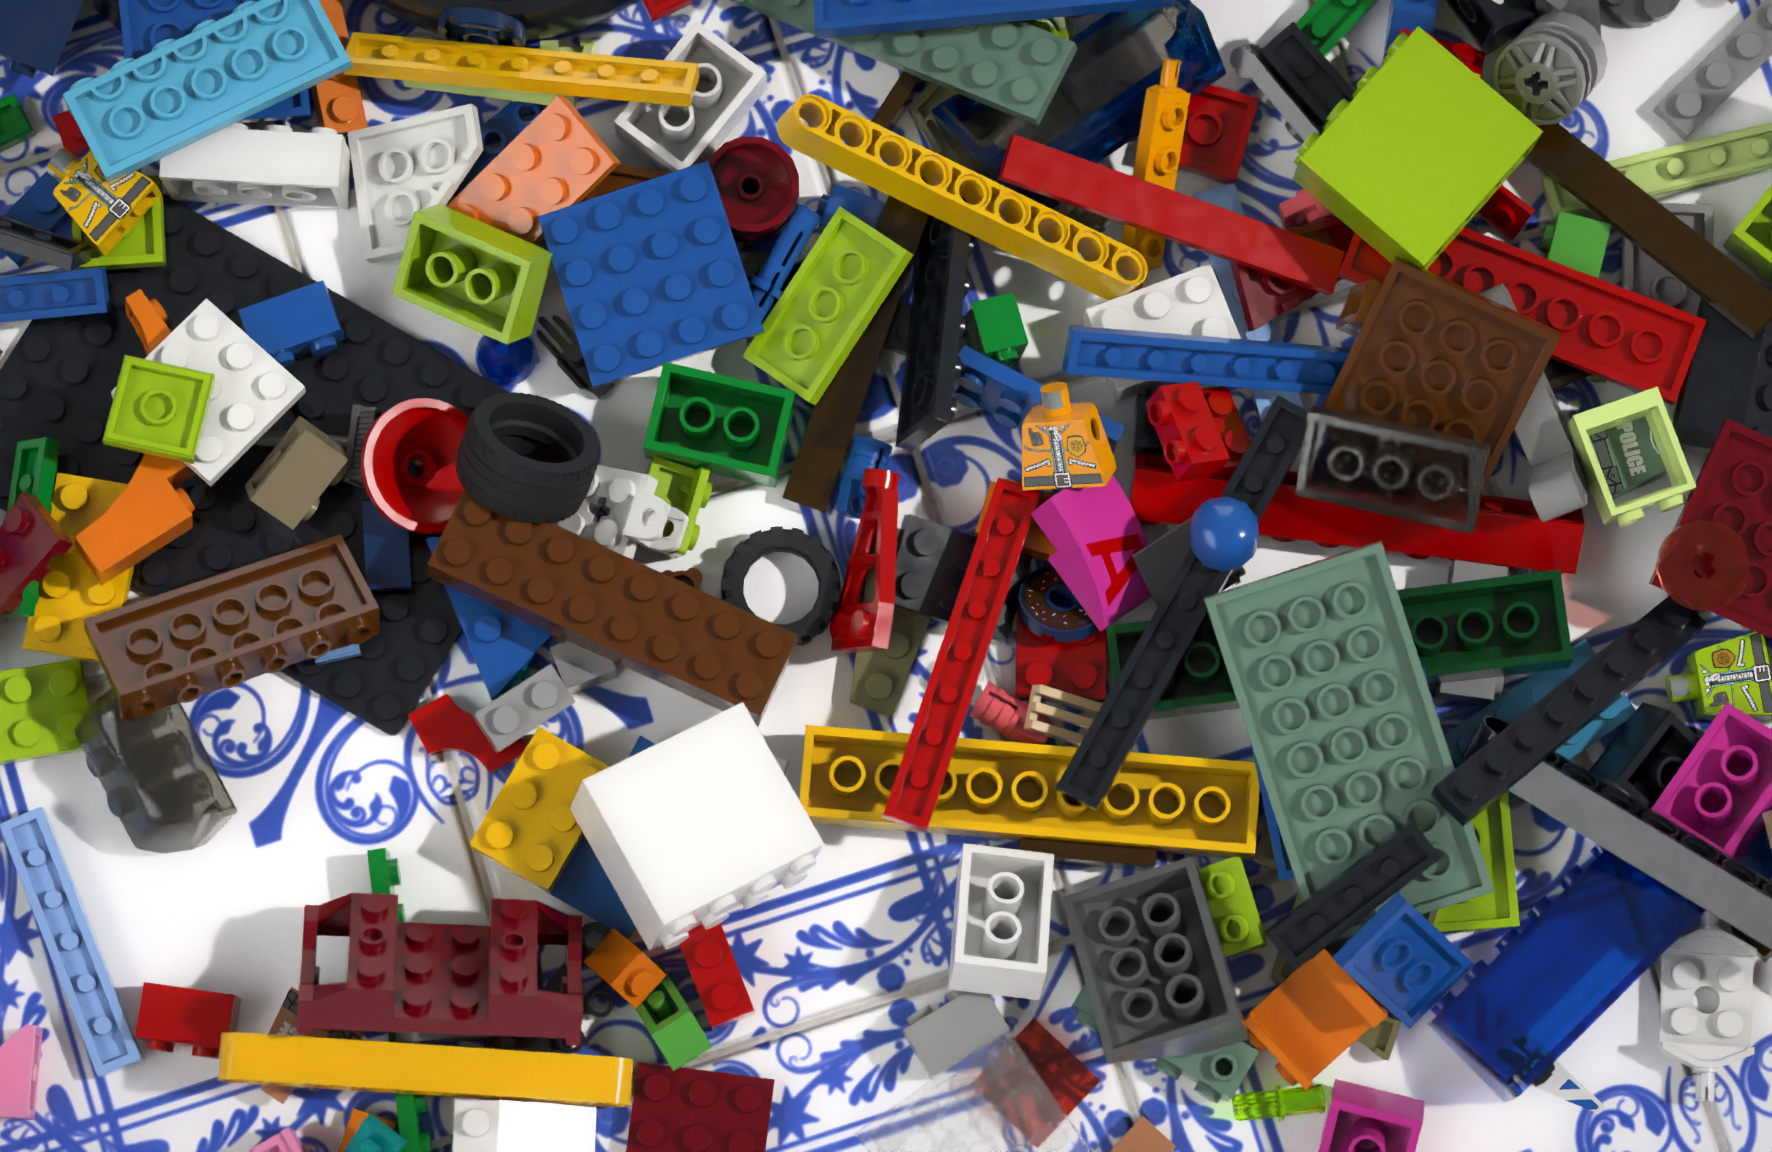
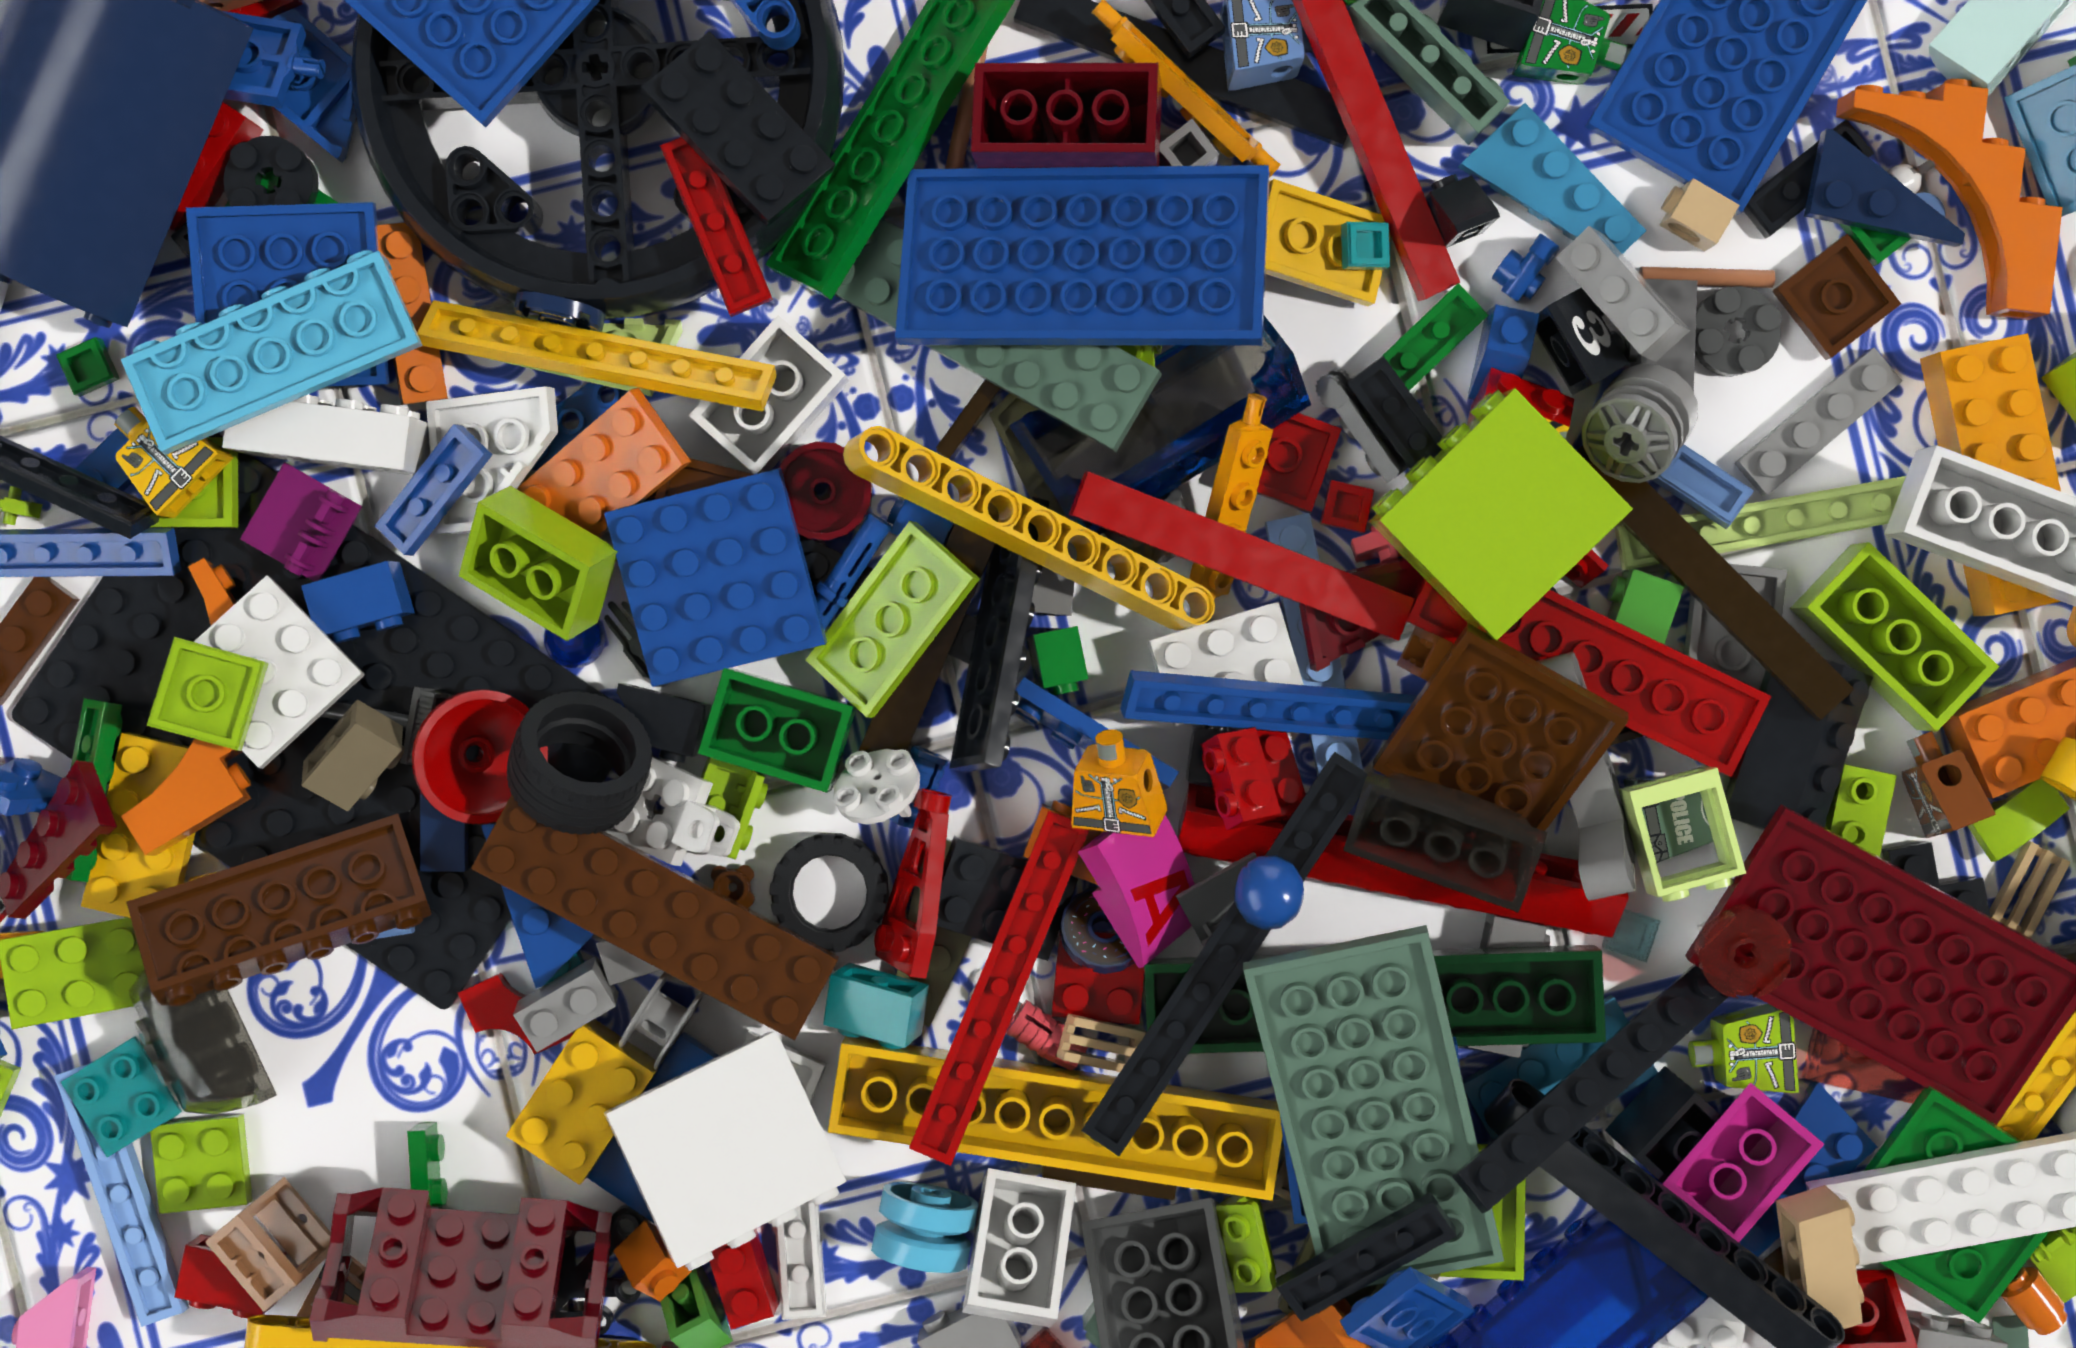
camera: 10 degrees right, 10 degrees up
(70, 839) = (121, 1096): none -> teal hinge
(150, 909) = (201, 1164): none -> lime plate
(226, 961) = (255, 1257): none -> medium nougat window
(229, 255) = (301, 523): none -> magenta hinge
(362, 213) = (433, 490): none -> plate
(616, 424) = (670, 720): none -> black slope
(619, 717) = (660, 1019): none -> light grey piece
(774, 961) = (801, 1265): none -> white tile
(825, 468) = (876, 786): none -> white plate
(838, 692) = (876, 1005): none -> teal brick
(903, 902) = (924, 1227): none -> medium azure wheel
(986, 271) = (1053, 594): none -> light grey brick
(1271, 174) = (1347, 506): none -> red plate
(1596, 576) = (1633, 935): none -> clear light blue tile
(1622, 130) = (1704, 487): none -> medium blue tile

